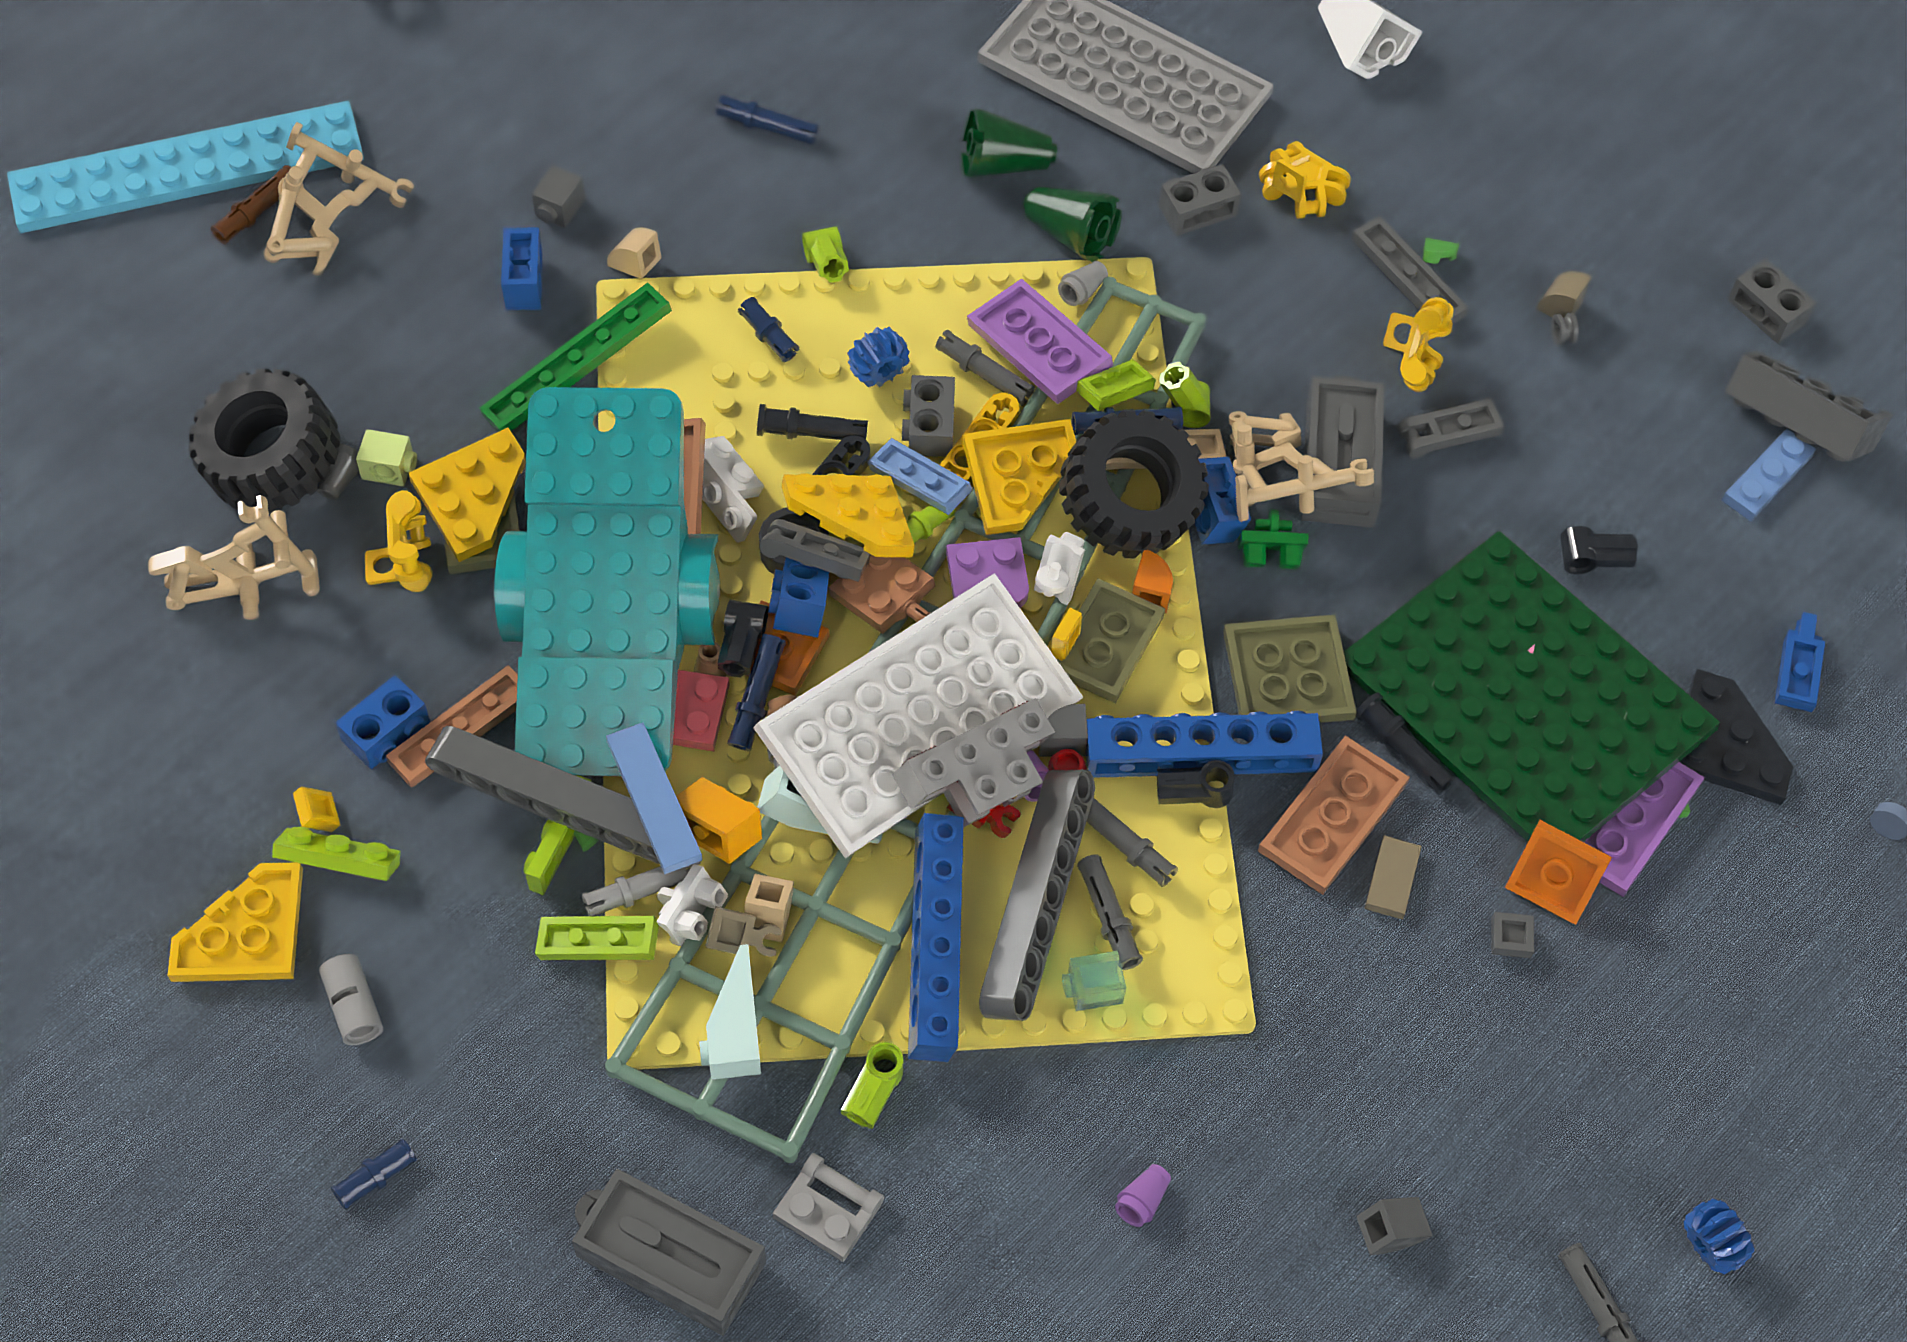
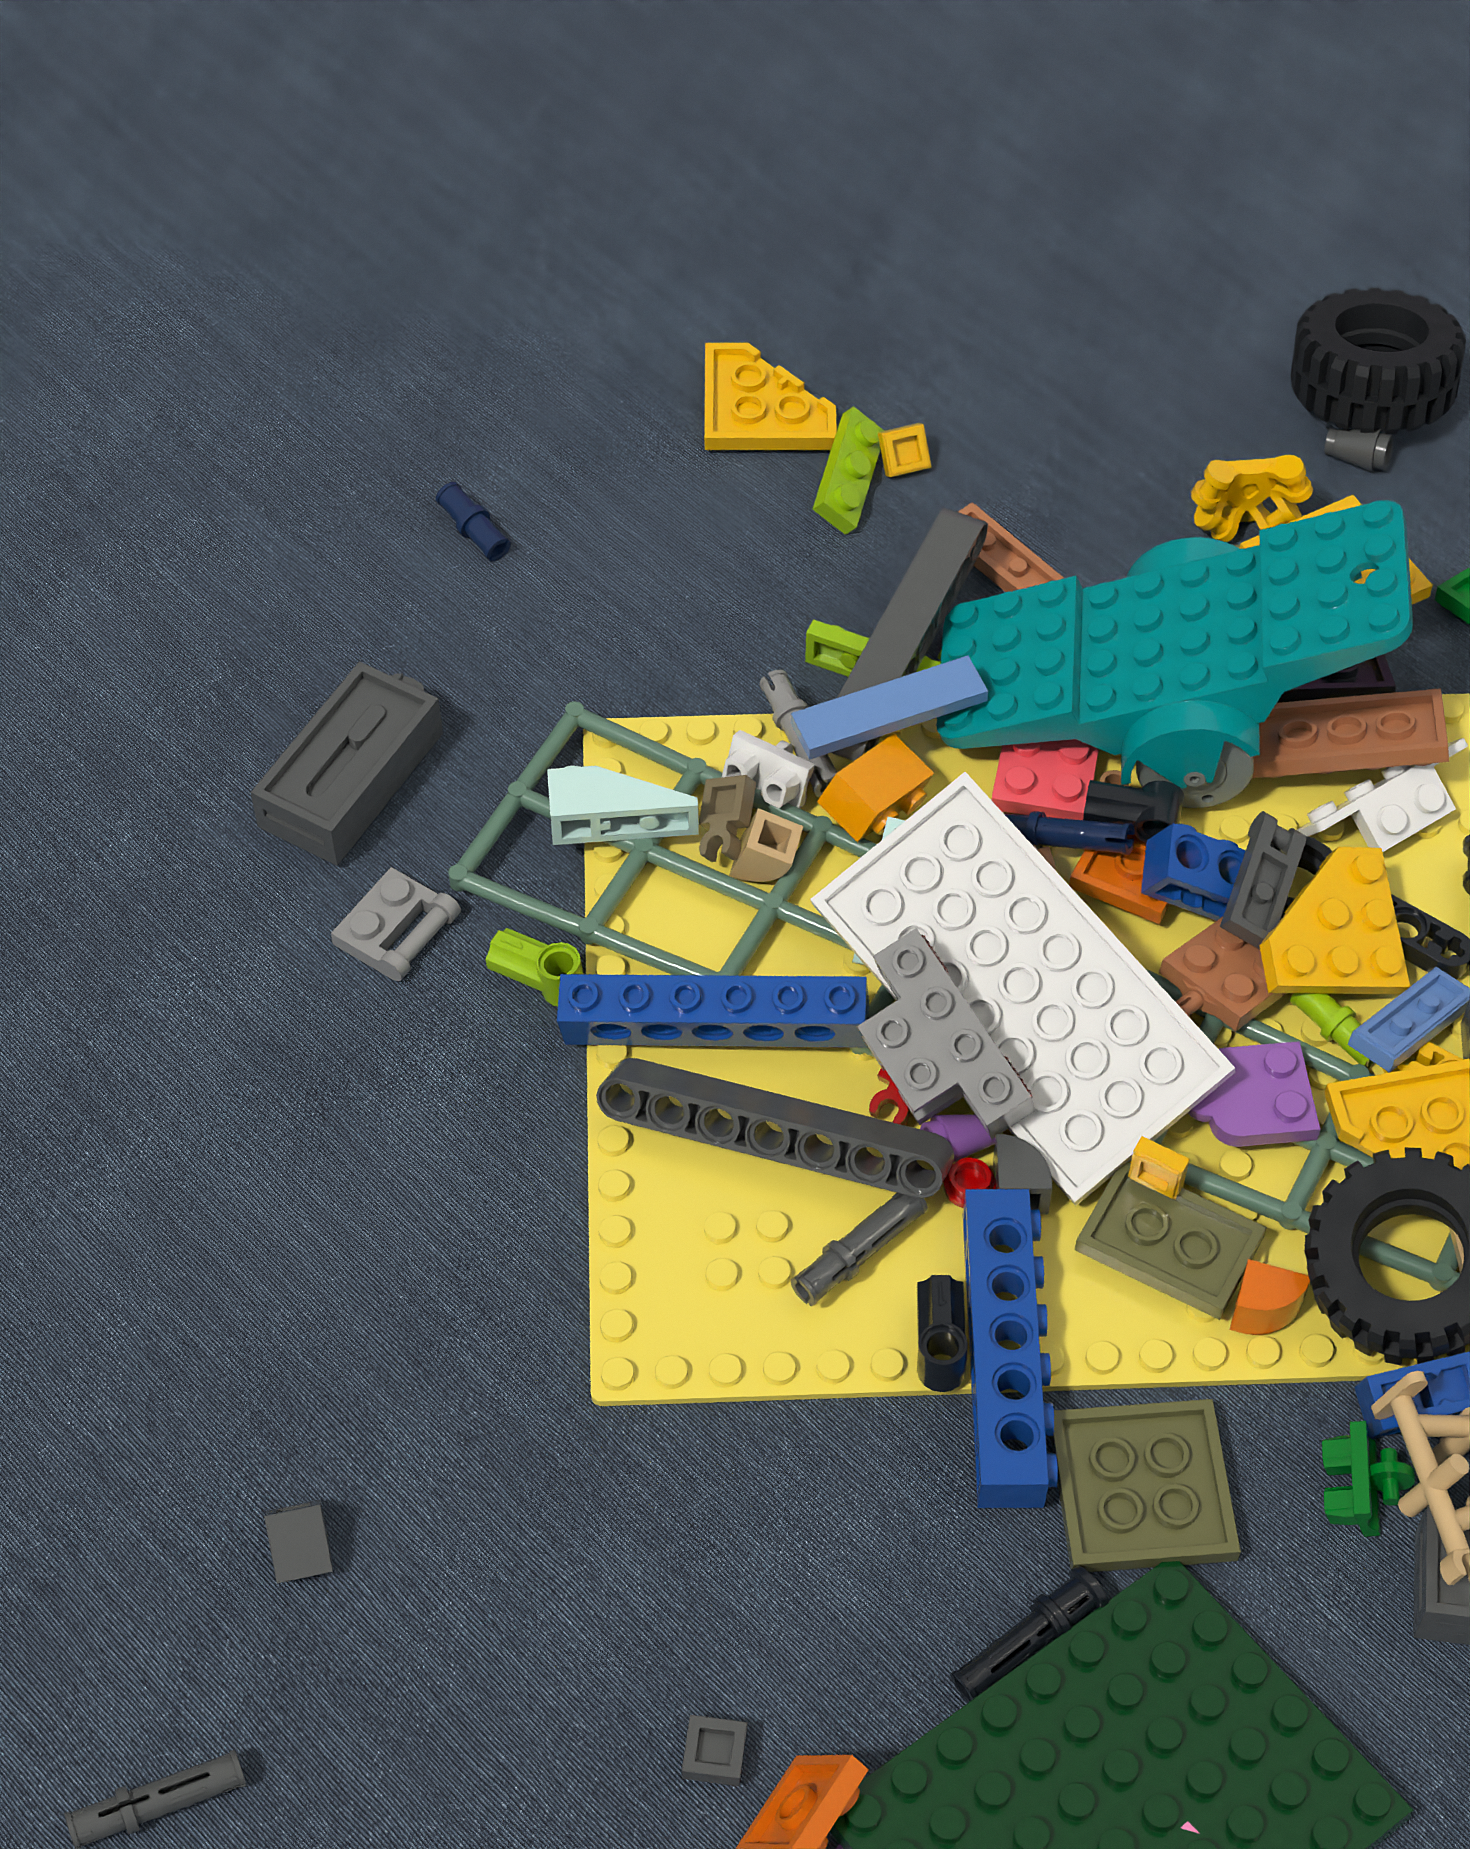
camera: 95 degrees right, 5 degrees down
(236, 576) = (1200, 368): tan piece -> none
(351, 999) = (672, 490): light grey pin -> none
(377, 716) = (1018, 498): blue brick -> none
(386, 458) = (1383, 476): yellowish green brick -> none
(597, 938) = (734, 692): lime plate -> none
(1060, 566) = (1263, 1160): white hips -> none
(1095, 981) = (653, 1194): clear light blue brick -> none
(1115, 926) = (733, 1224): dark grey pin -> none
(1142, 1197) = (370, 1245): medium lavender cone -> none
(1333, 814) = (911, 1525): nougat plate -> none
(1393, 877) = (814, 1599): dark tan tile -> none

